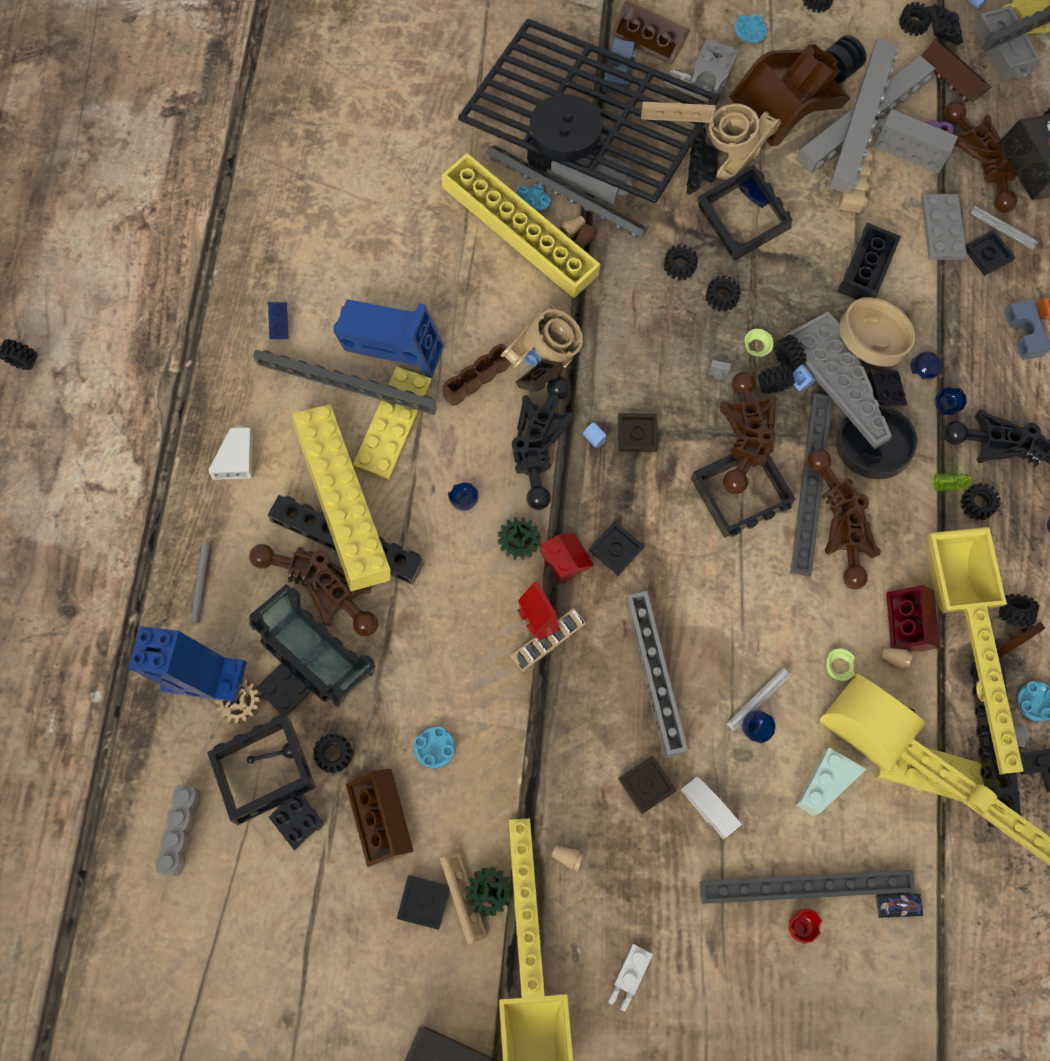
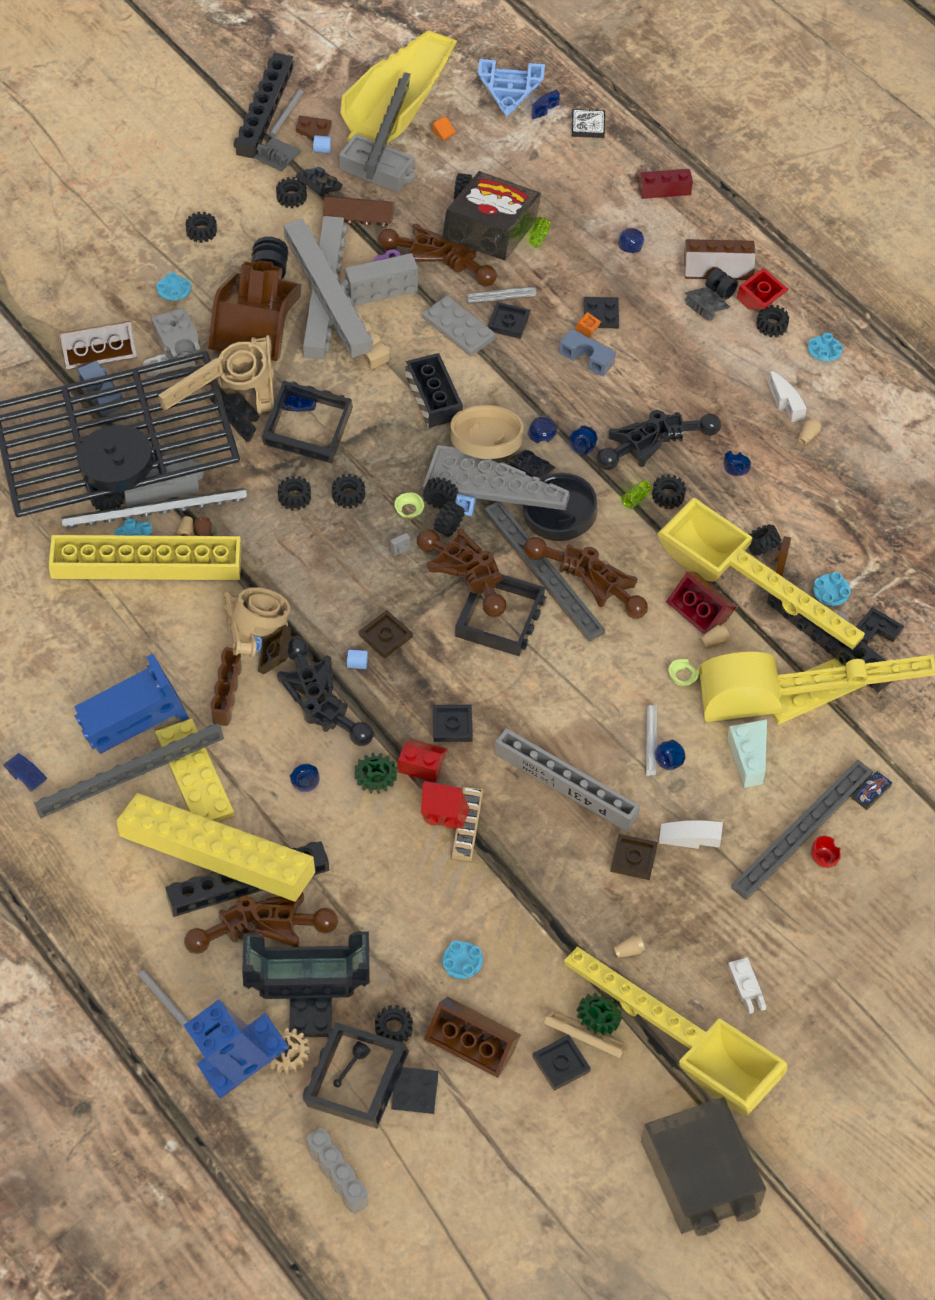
camera: 40 degrees left, 15 degrees down
(234, 456) = (98, 891): white slope -> none

